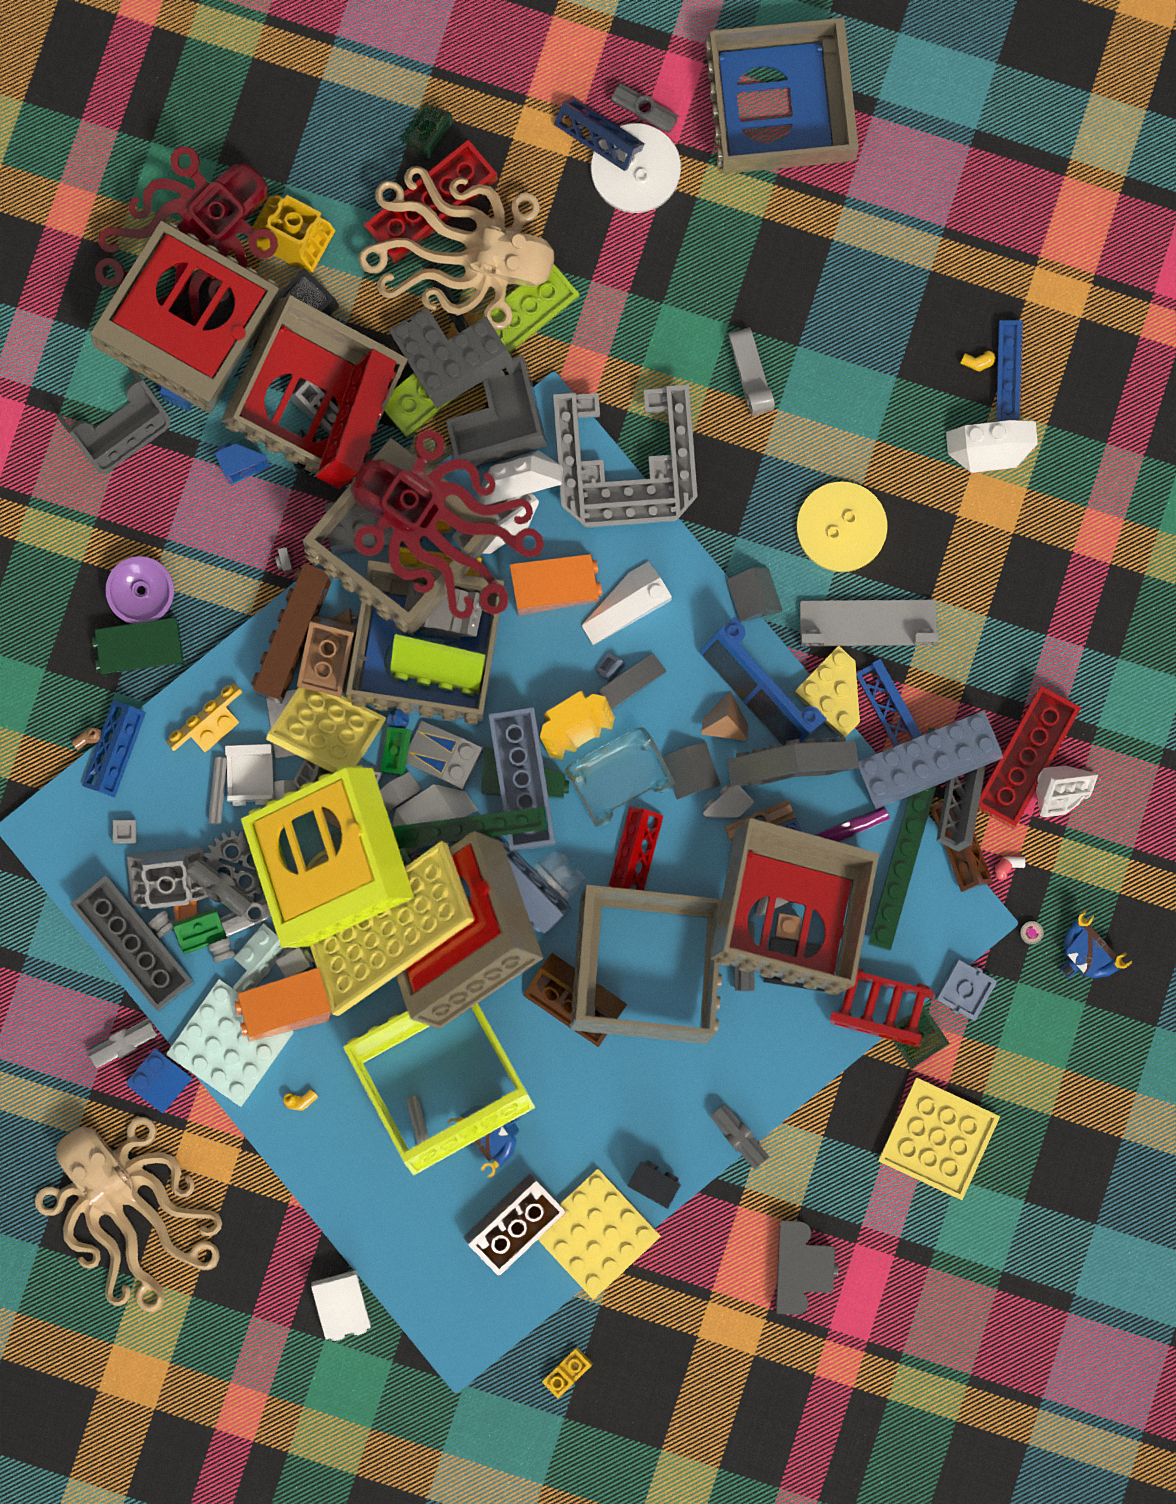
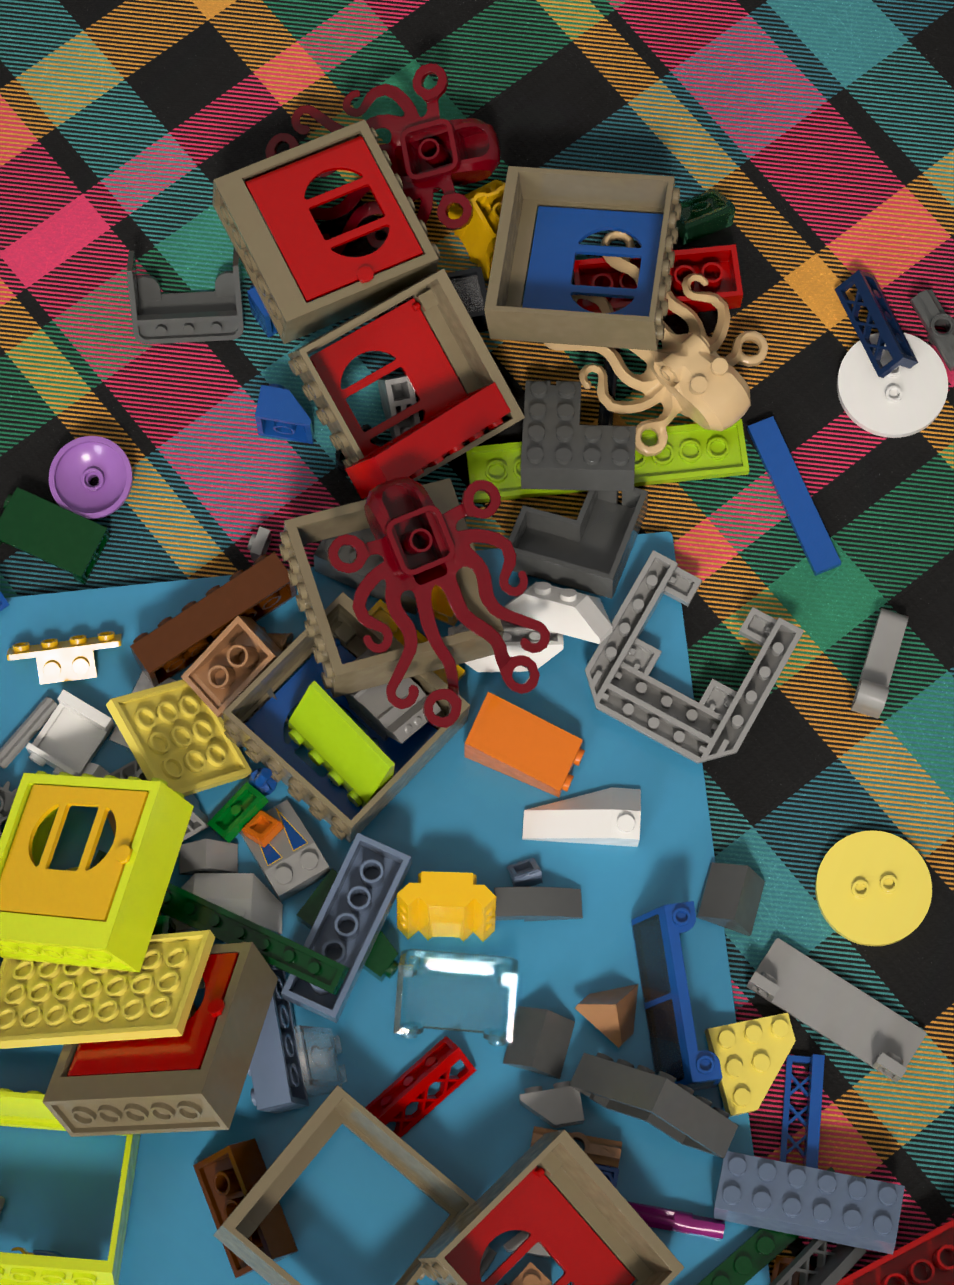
camera: 30 degrees right, 10 degrees down
(373, 272) = (569, 210): none -> dark tan door
(420, 751) = (262, 828): none -> orange tile
(619, 291) = (794, 496): none -> blue tile

